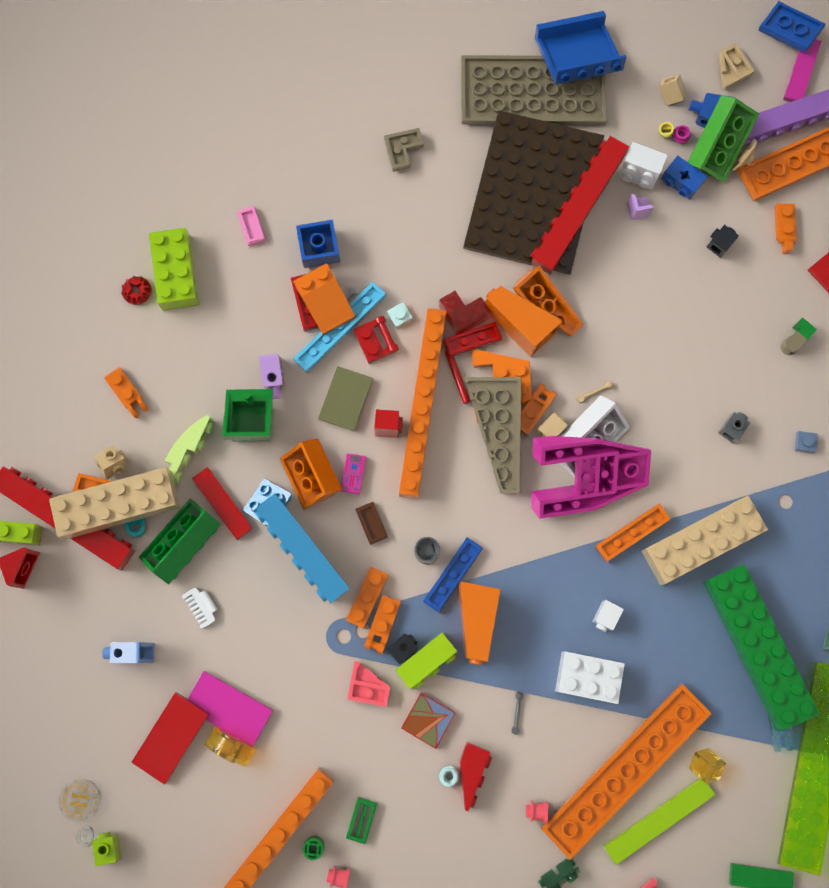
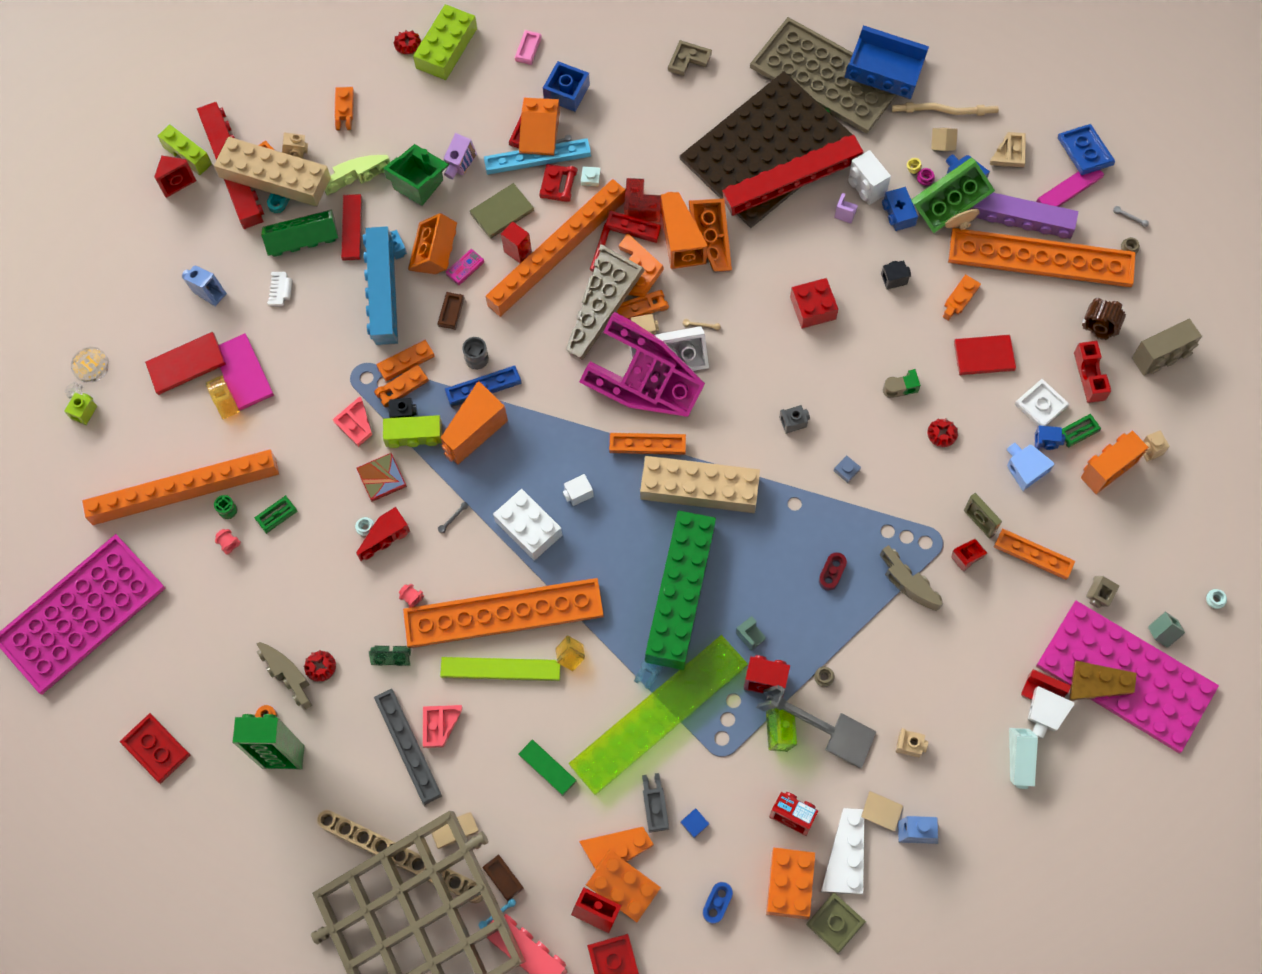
camera: 40 degrees right, 10 degrees down
(624, 76) = (979, 110): none -> tan bar
(676, 311) = (814, 303): none -> red brick

